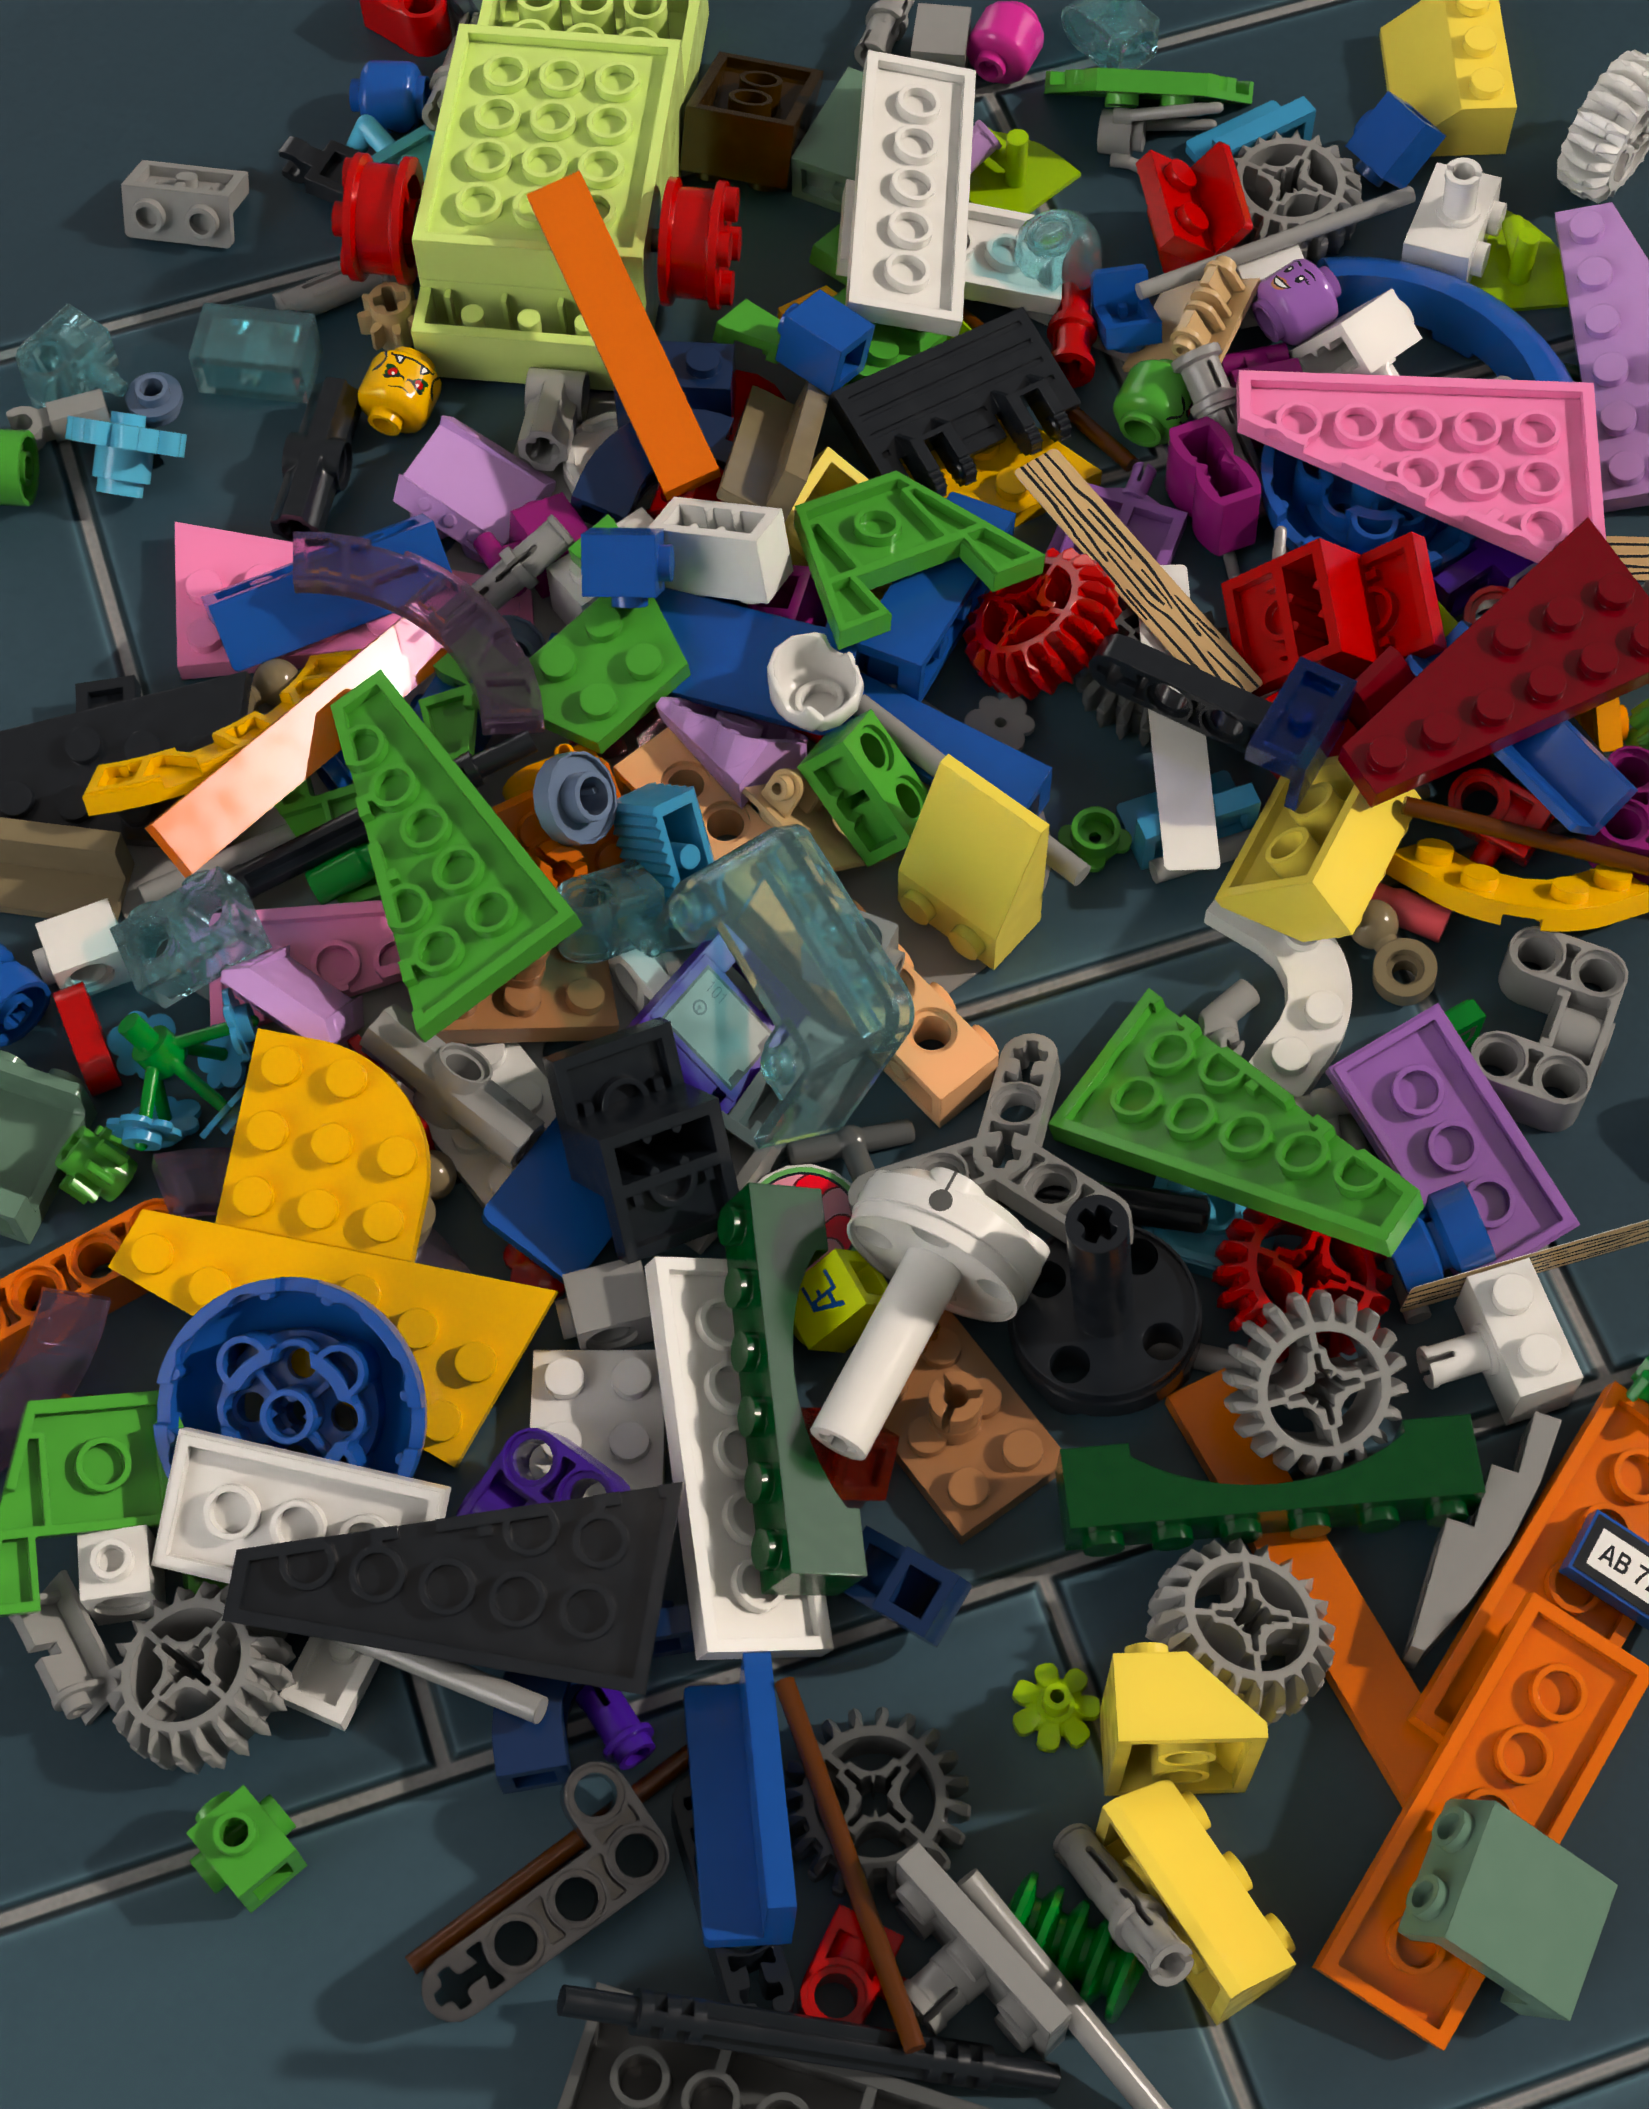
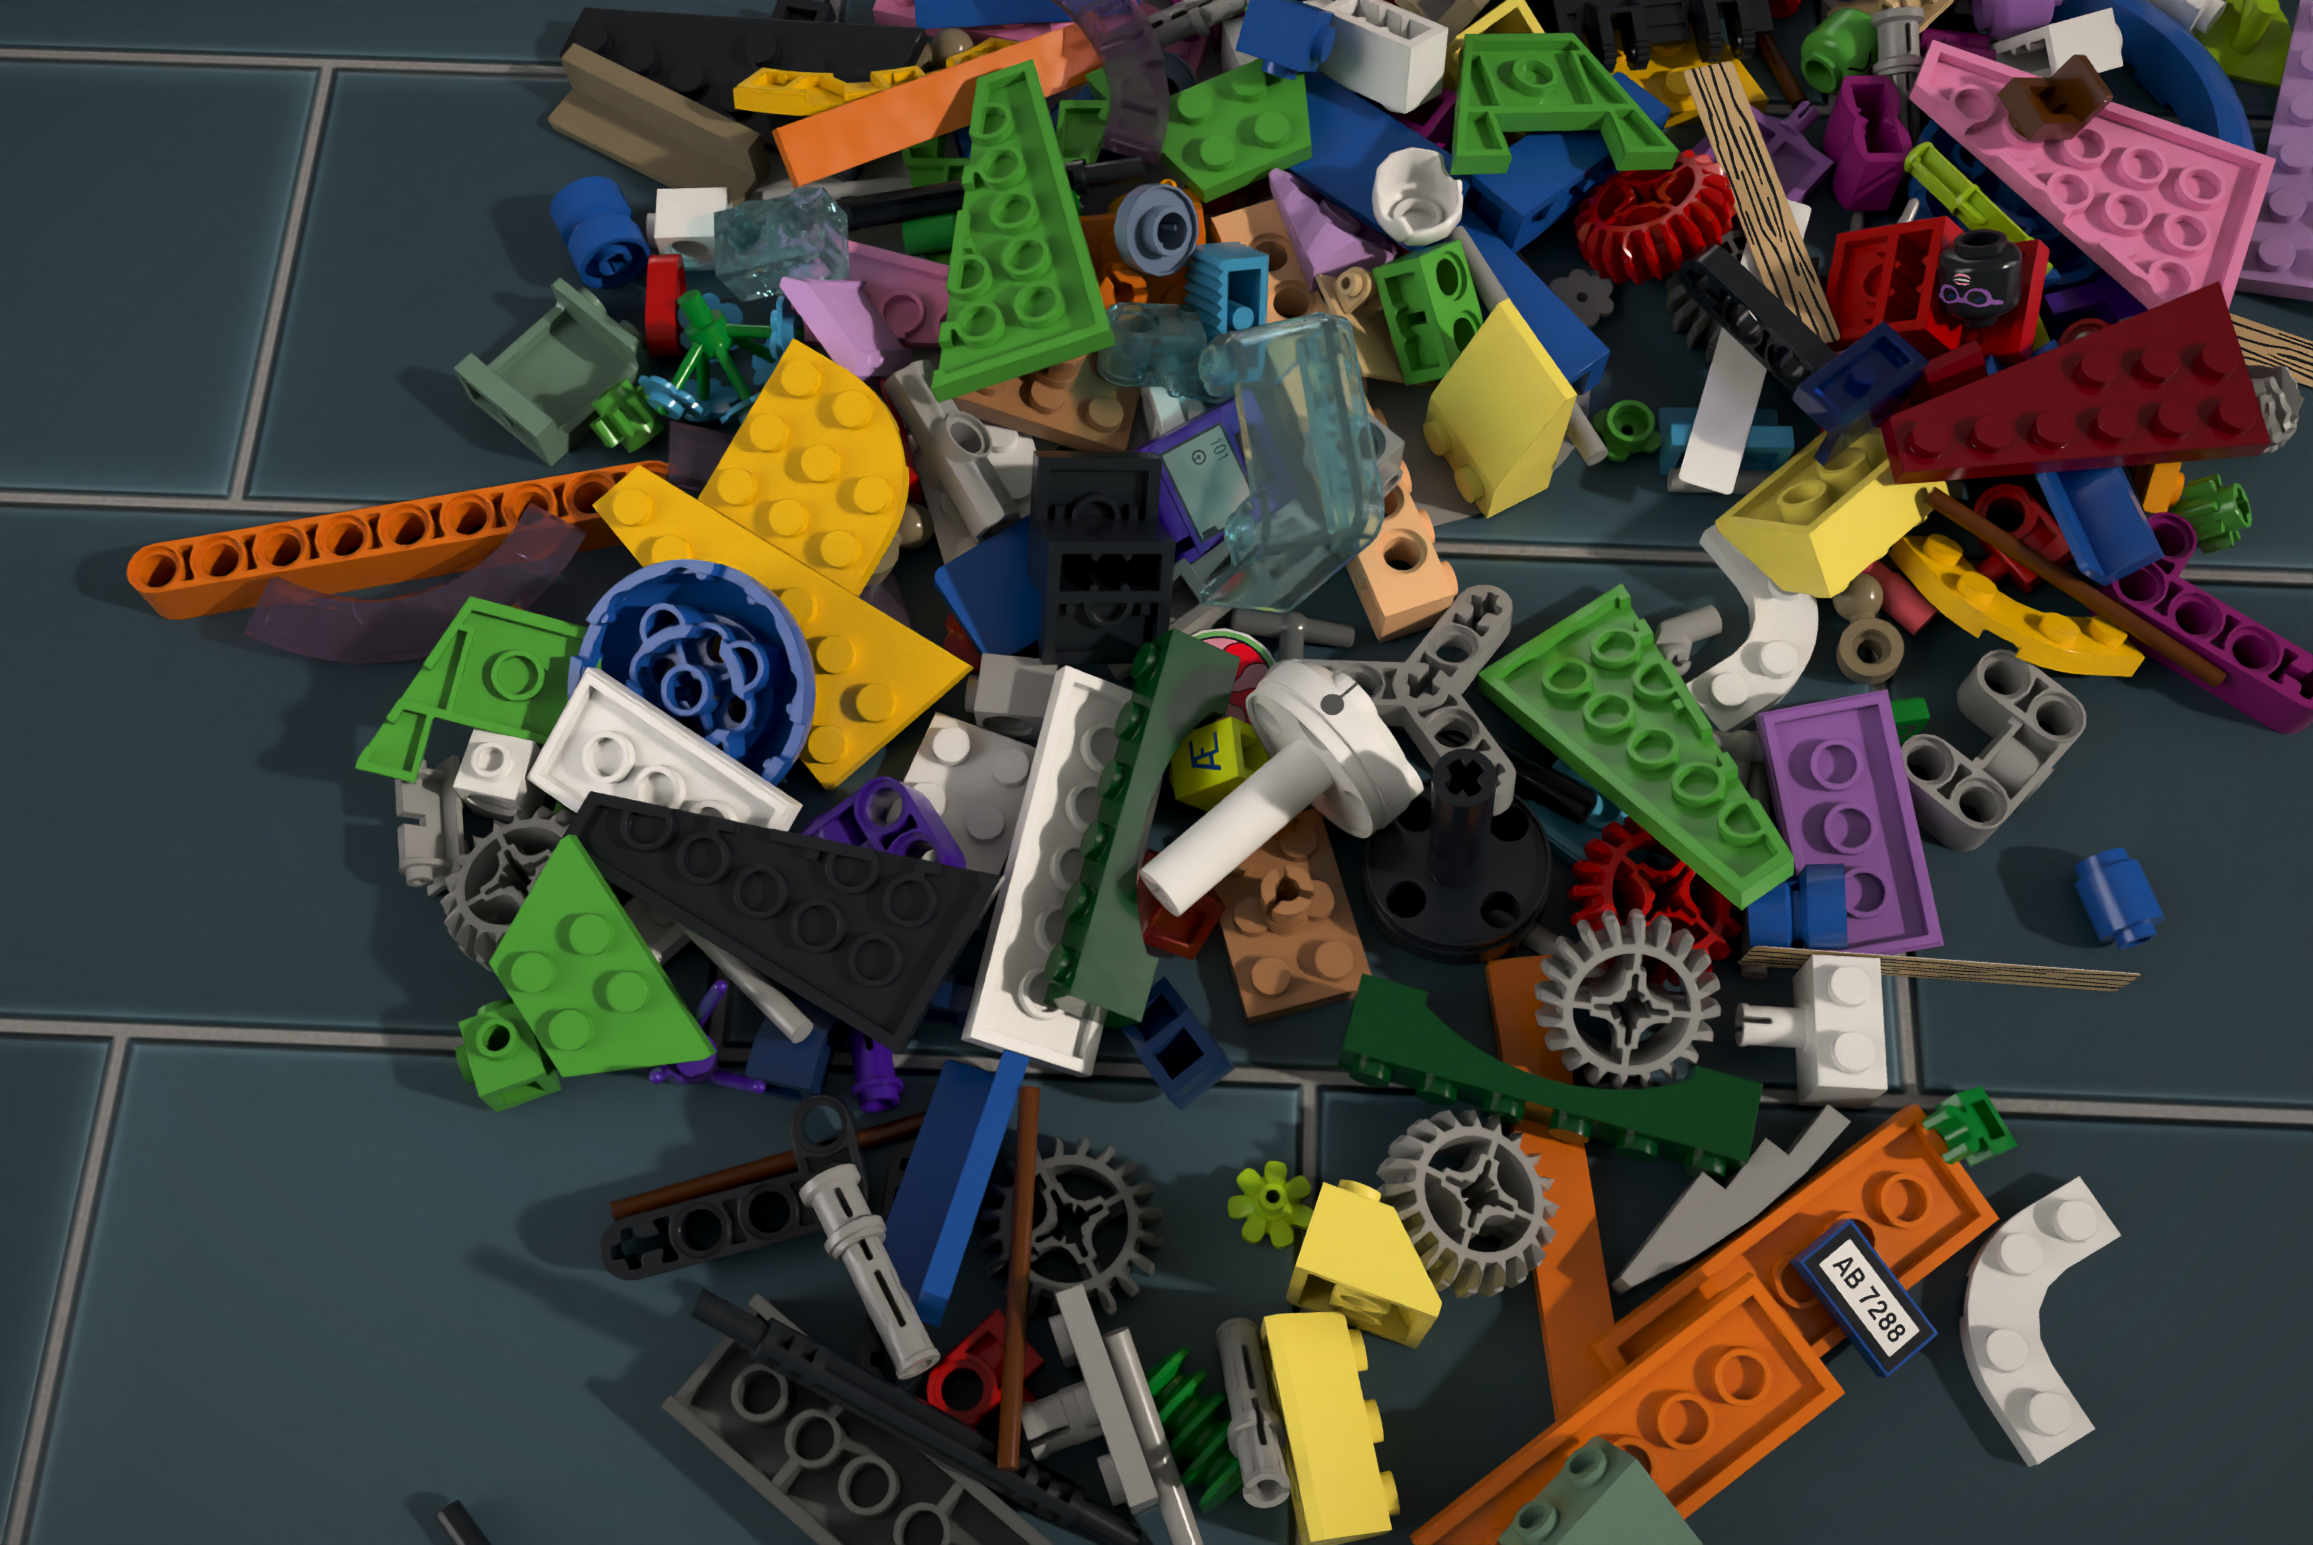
camera: 20 degrees right, 5 degrees up
(307, 1735) = (591, 977): none -> bright green wing
(432, 1778) = (698, 1071): none -> dark purple plant
(681, 1889) = (857, 1241): none -> light grey pin
(1325, 512) = (1960, 194): none -> lime piece
(1372, 586) = (1980, 277): none -> black head
(1378, 397) = (2056, 105): none -> reddish brown bracket

